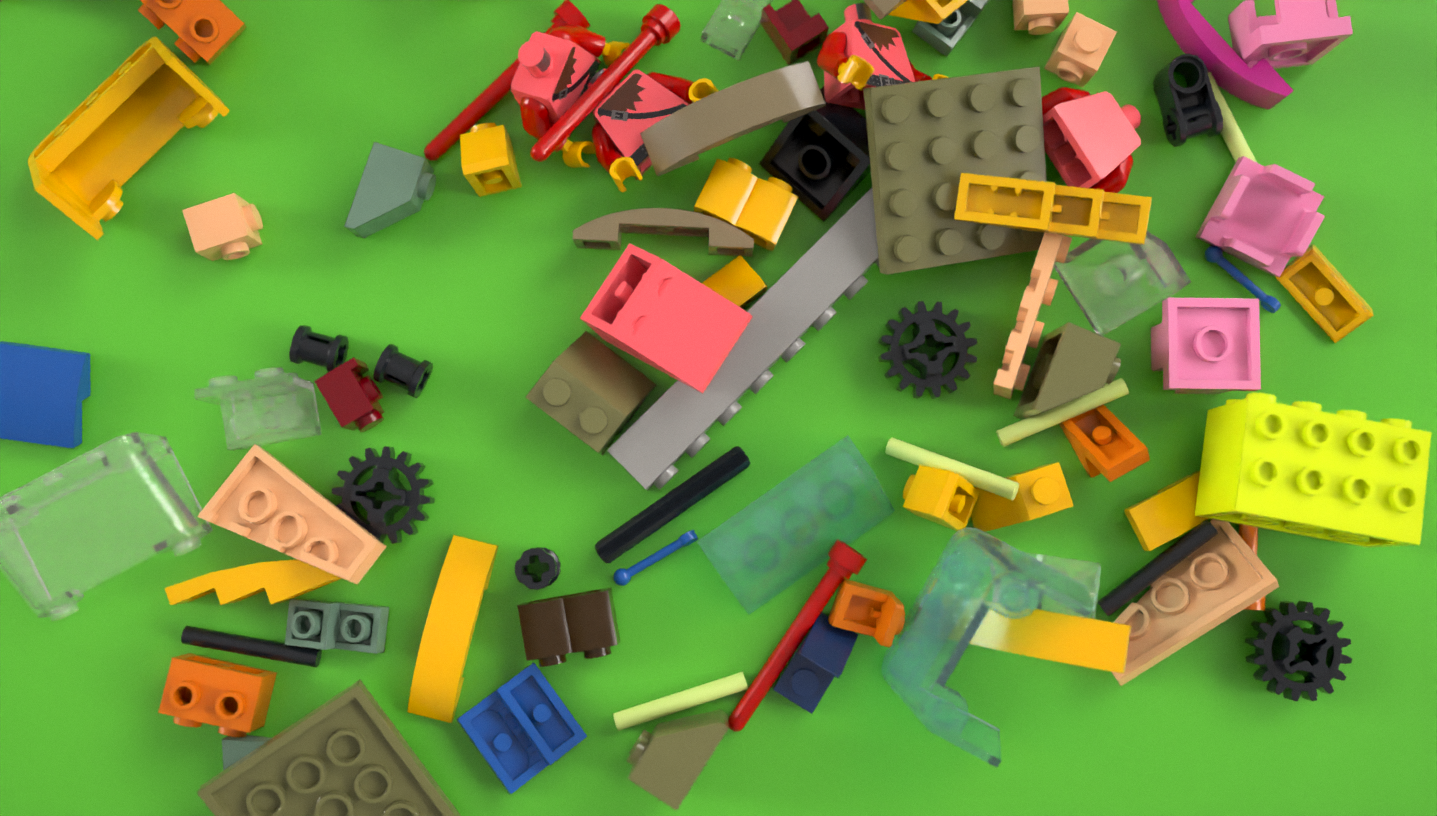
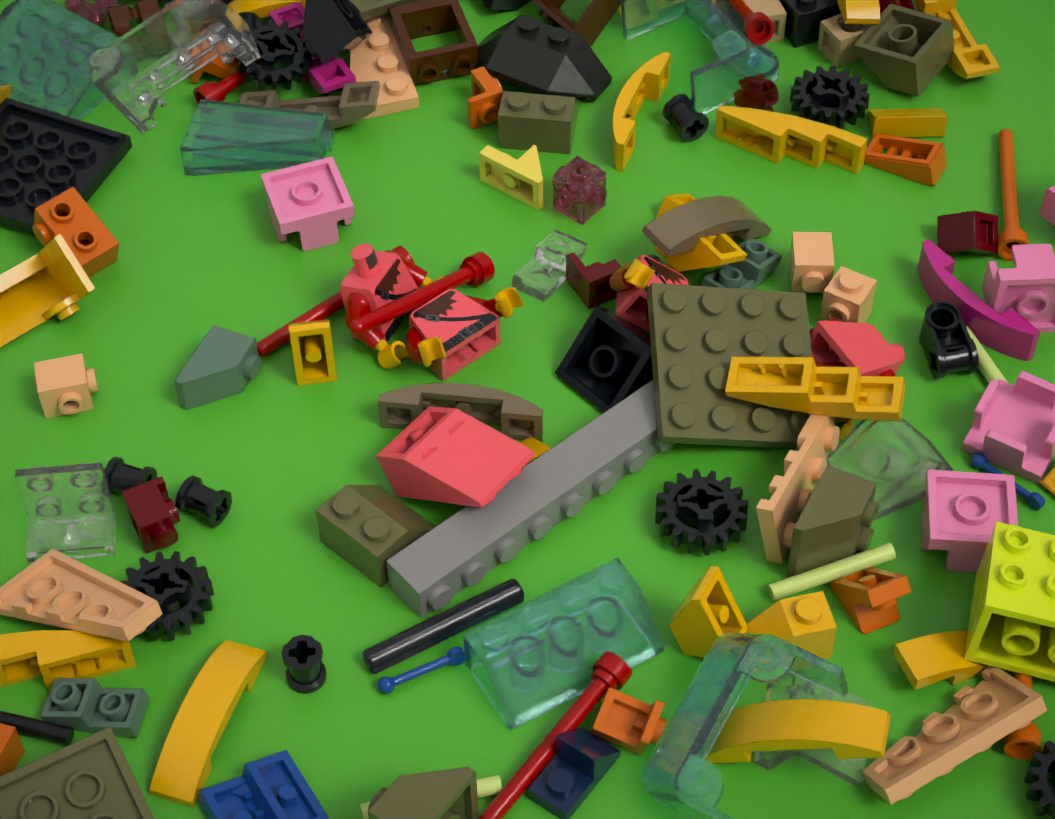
camera: 10 degrees right, 35 degrees down
(569, 625) = (327, 714): dark brown brick -> none
(731, 114) = (528, 306): dark tan slope -> none
(747, 202) = (554, 391): yellow brick -> none
(975, 476) = (746, 603): yellowish green bar -> none
(1157, 567) = (935, 699): black bar -> none

